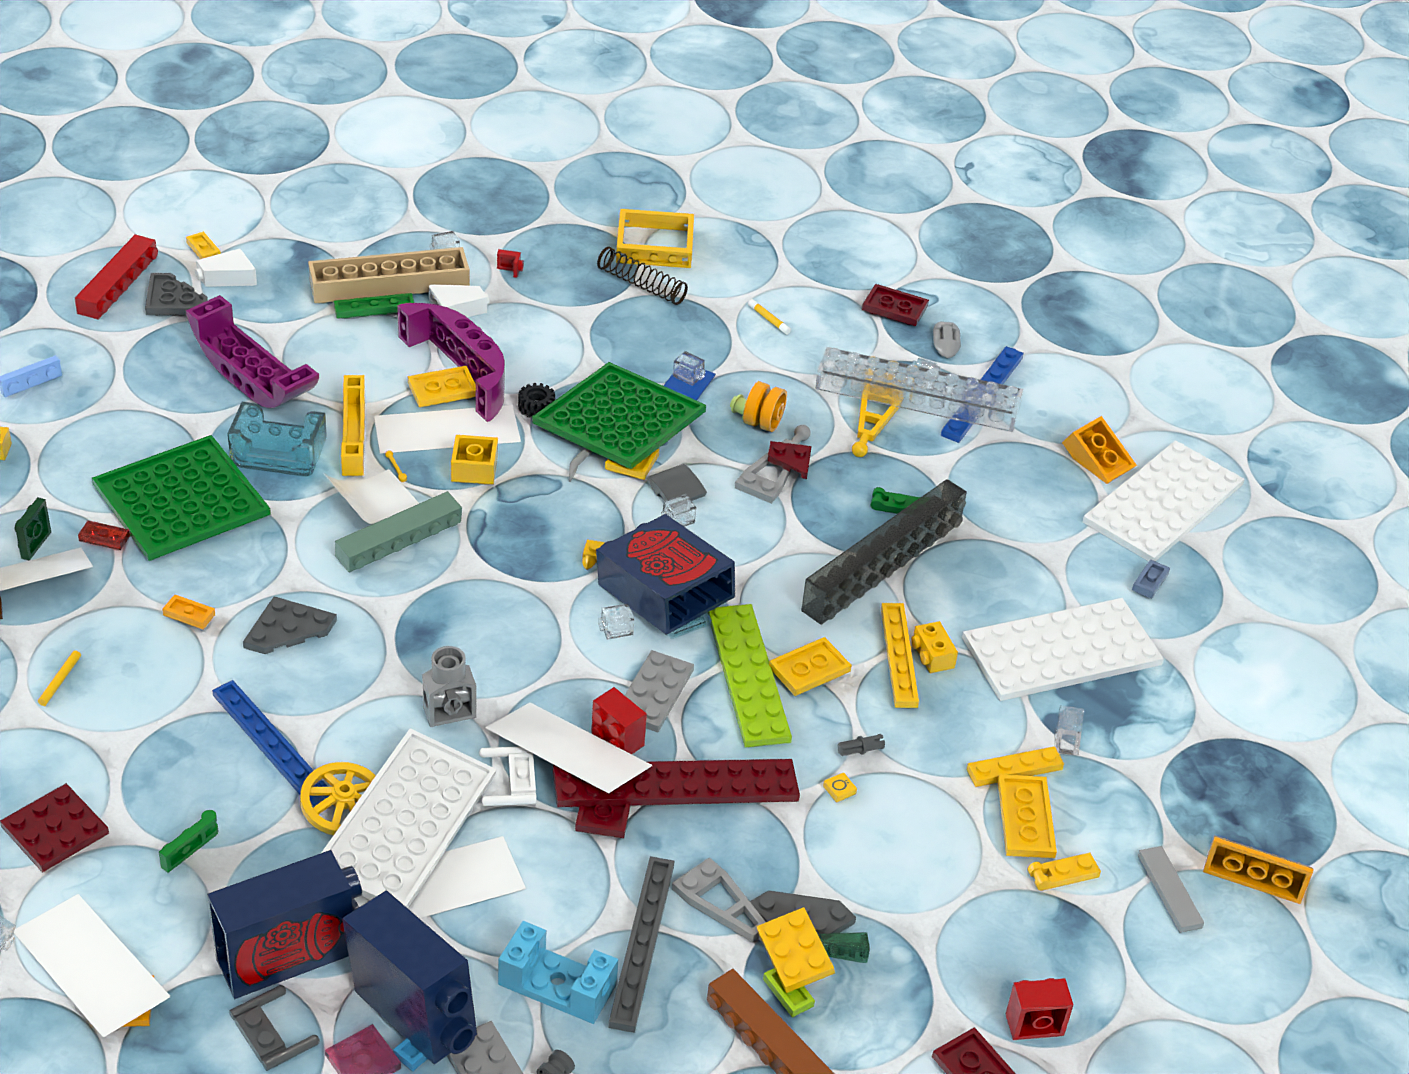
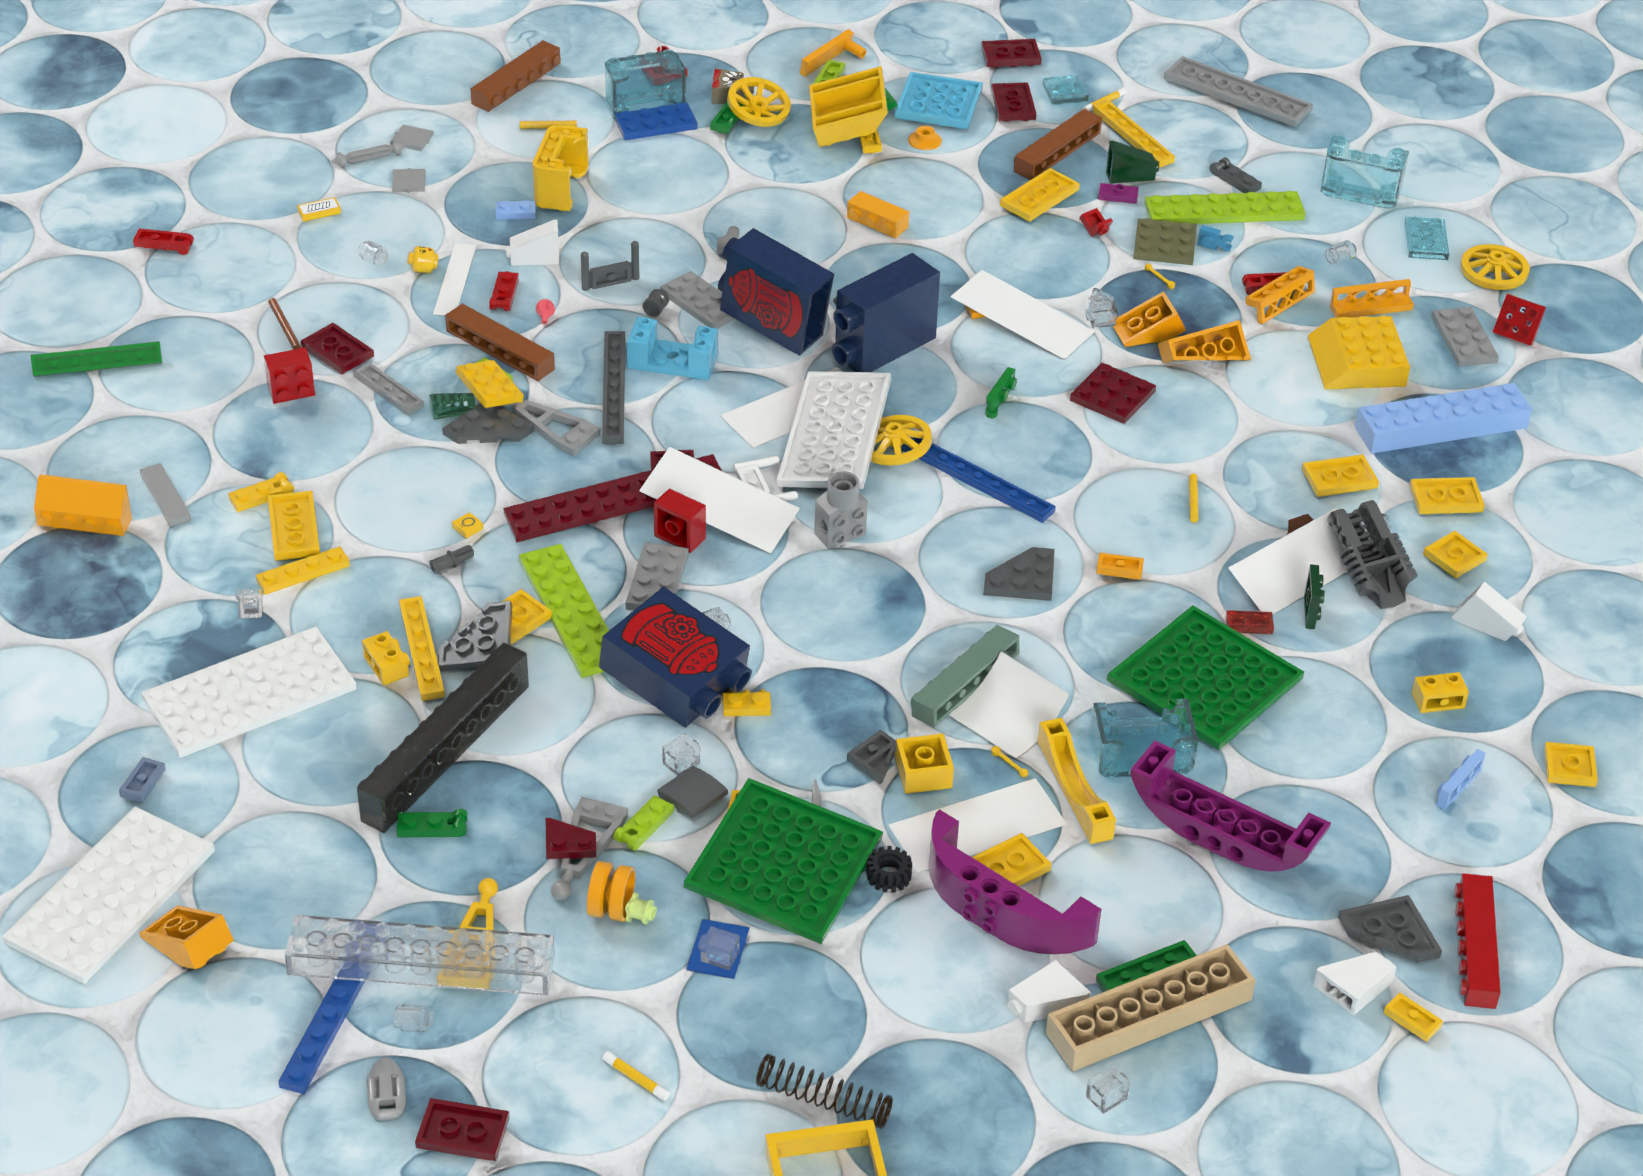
camera: 170 degrees right, 0 degrees up
(510, 261) = (1010, 1081): red bracket -> none
(511, 485) = (874, 755): none -> dark grey wing
(724, 472) = (644, 823): none -> lime plate
(843, 637) = (478, 638): none -> plate
(916, 1000) = (388, 389): none -> light grey tile

